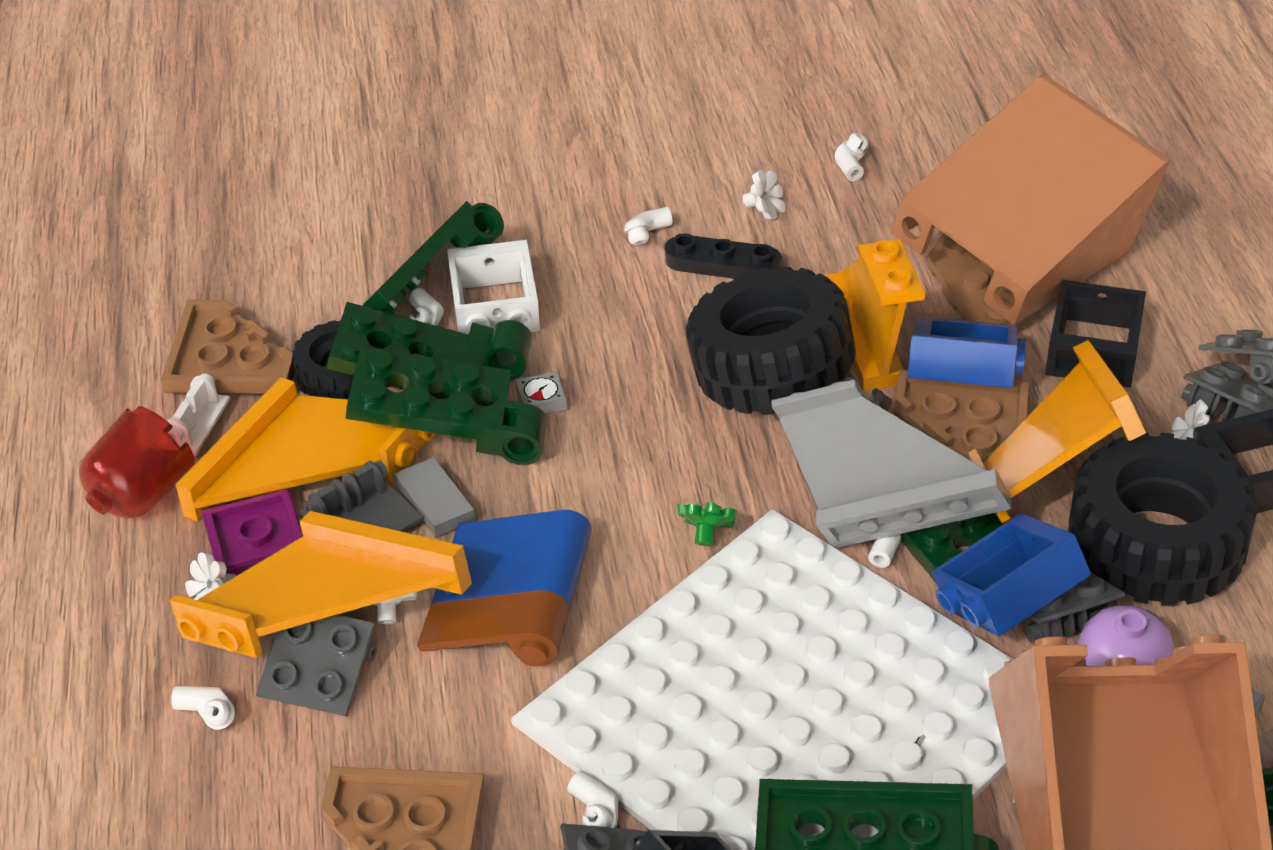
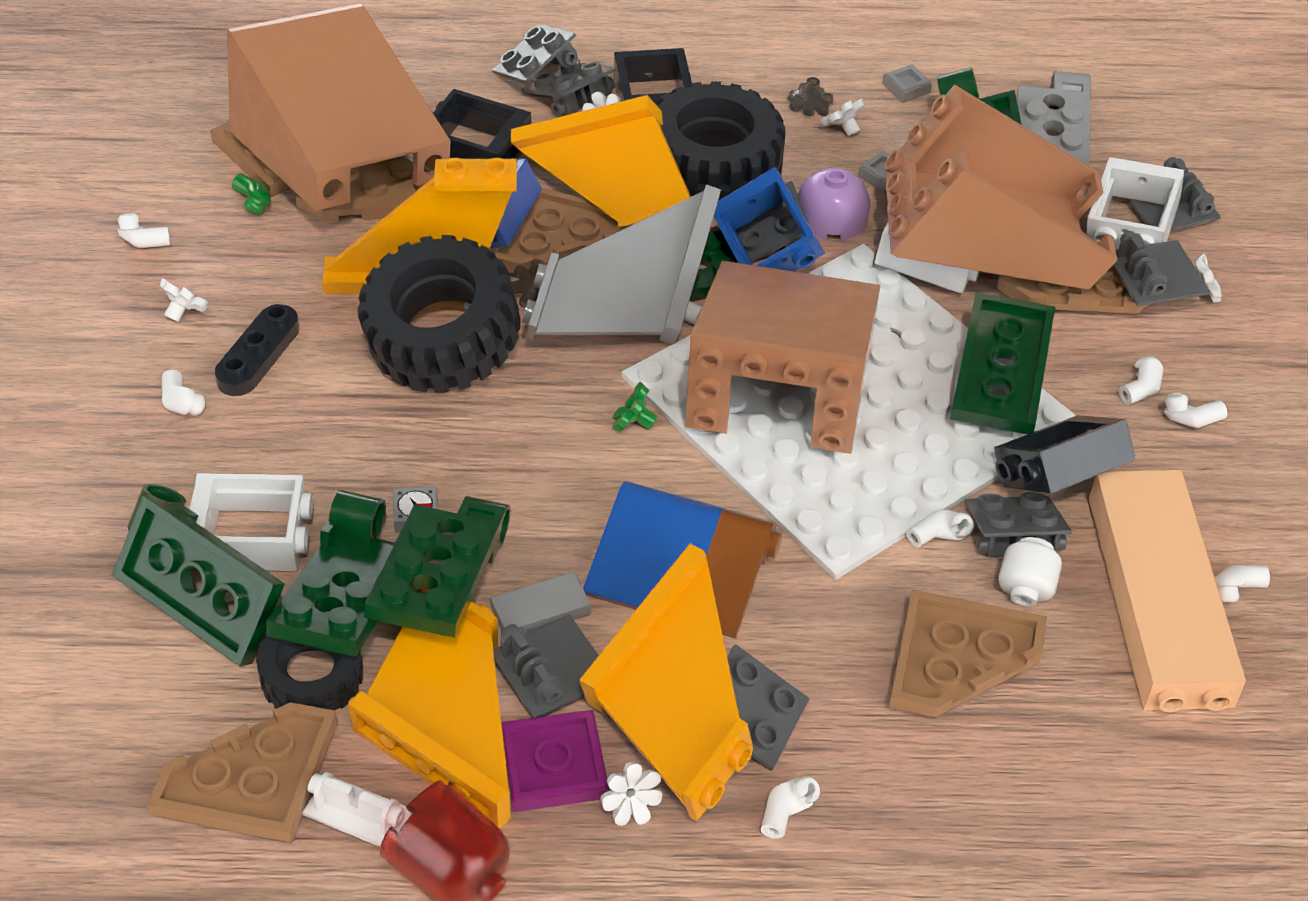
camera: 85 degrees left, 5 degrees up
(797, 602) = (787, 332): none -> nougat windscreen

